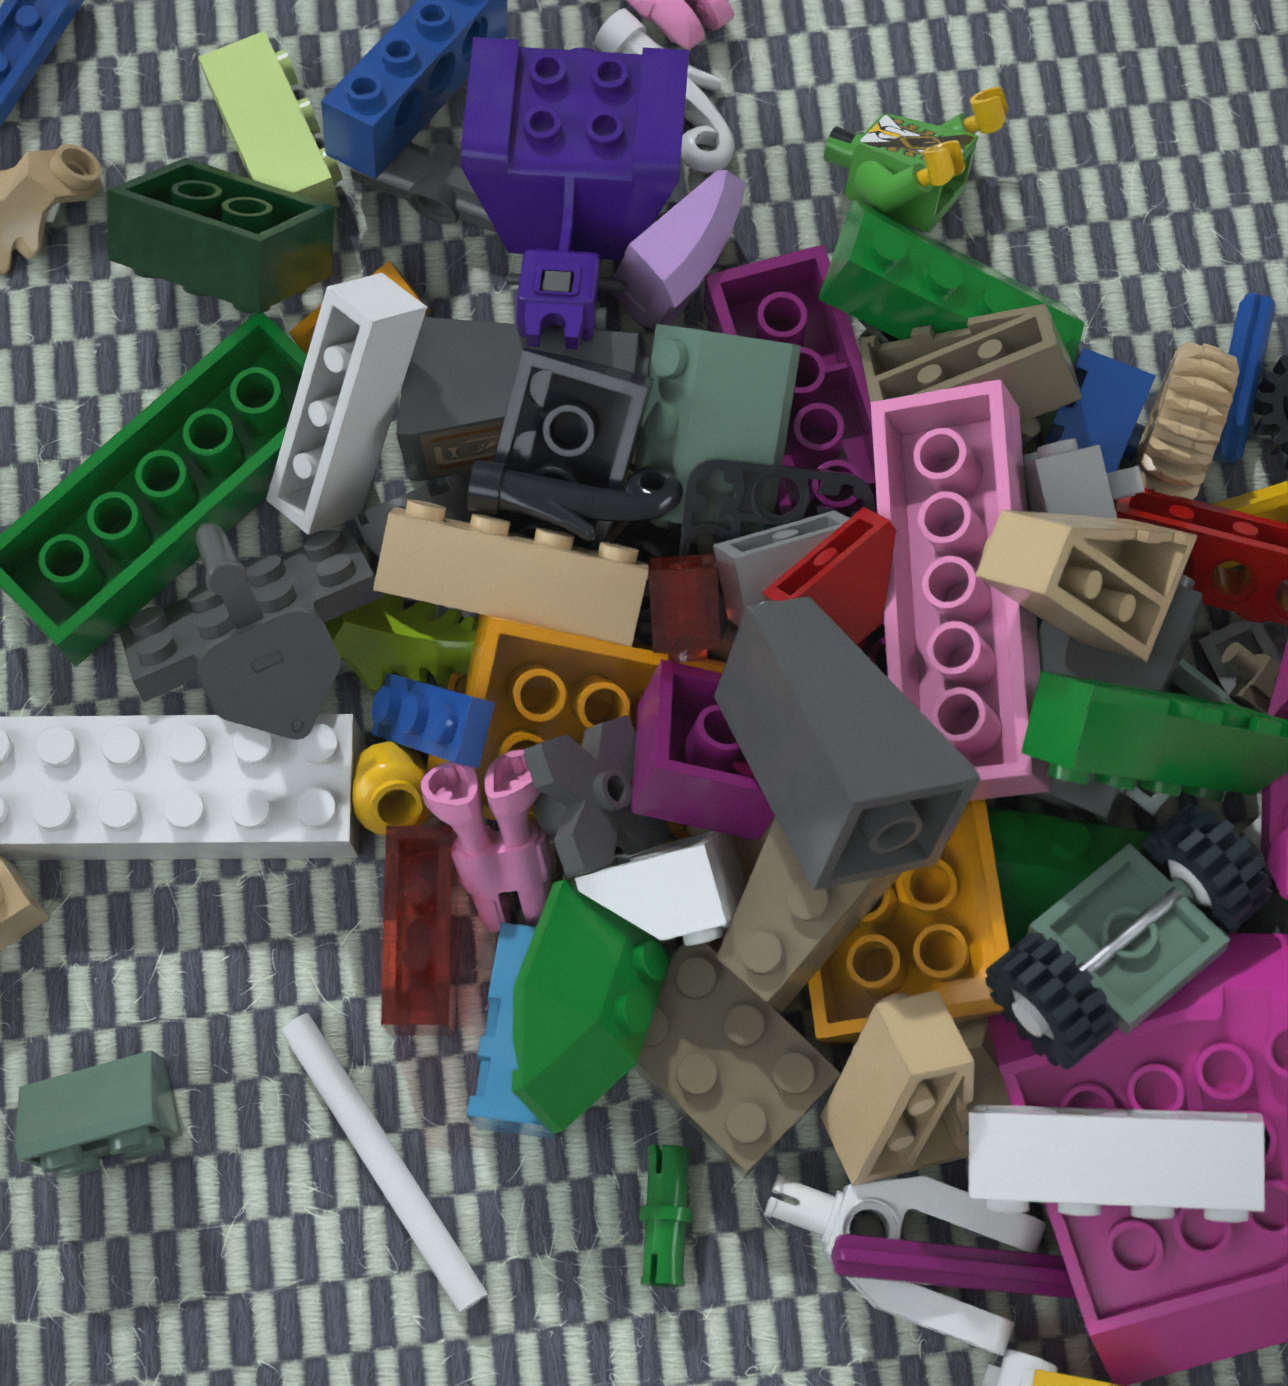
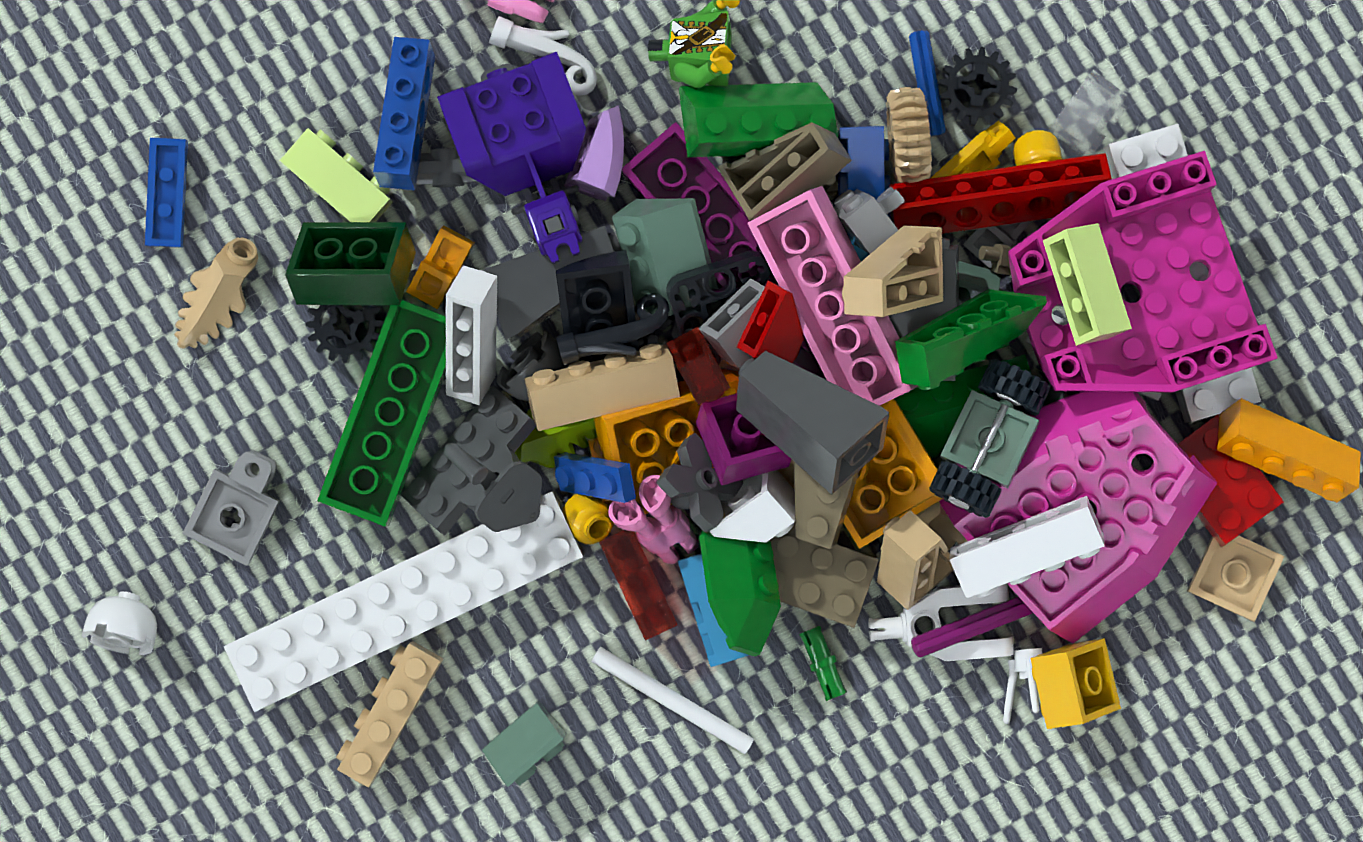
camera: 25 degrees left, 15 degrees up
(152, 319) = (330, 330): none -> black gear

